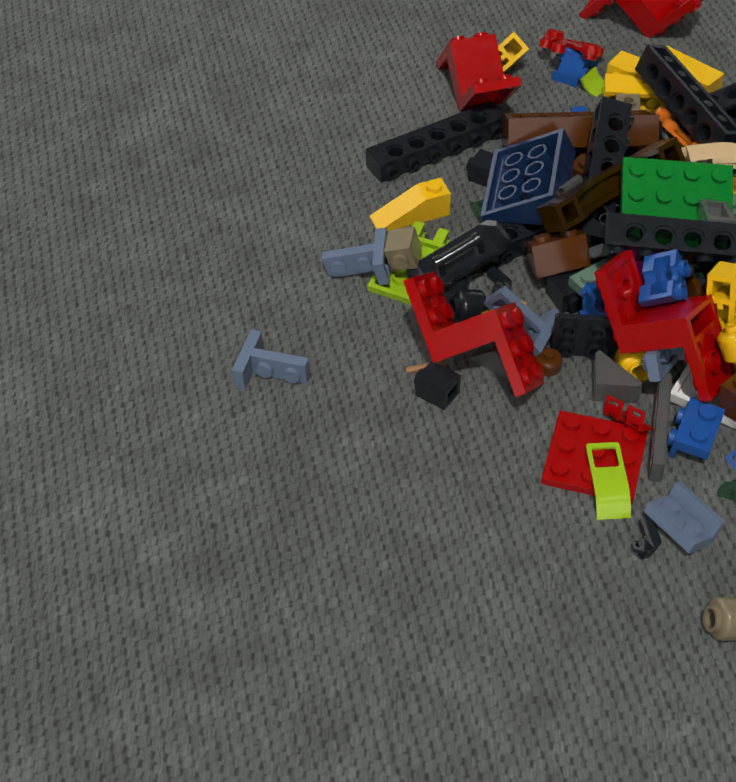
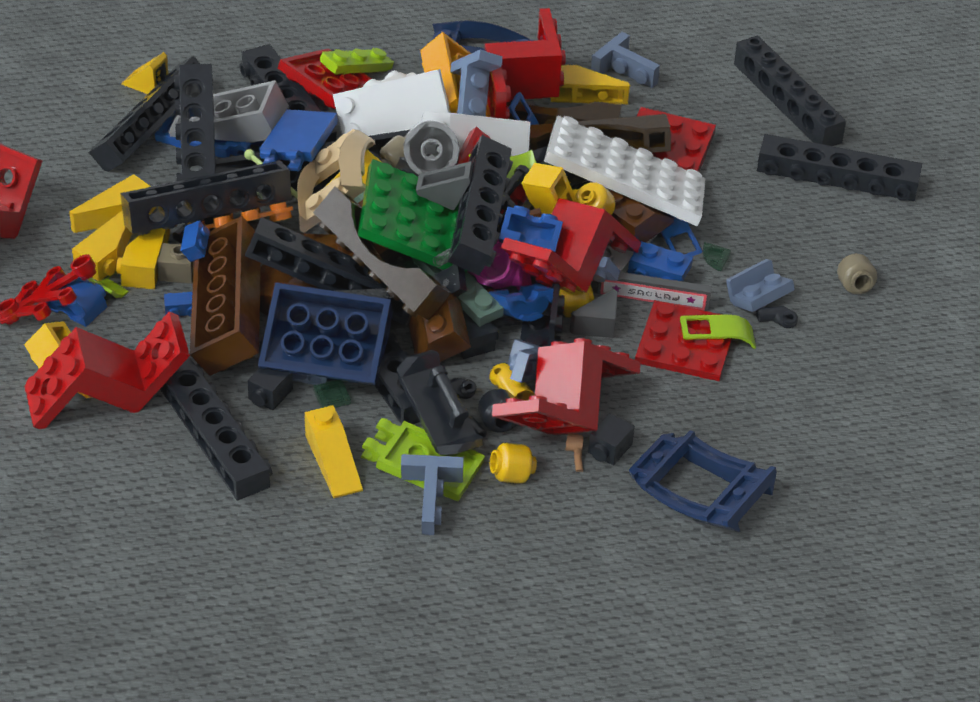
camera: 95 degrees left, 5 degrees down
(267, 363) = (584, 589): sand blue bracket -> none
(365, 479) = (745, 480): none -> dark blue wedge
(401, 317) = (512, 463): none -> yellow head
(403, 249) = (430, 441): dark tan brick -> none
(626, 416) = (633, 320): red piece -> none
(639, 102) = (195, 241): none -> blue piece

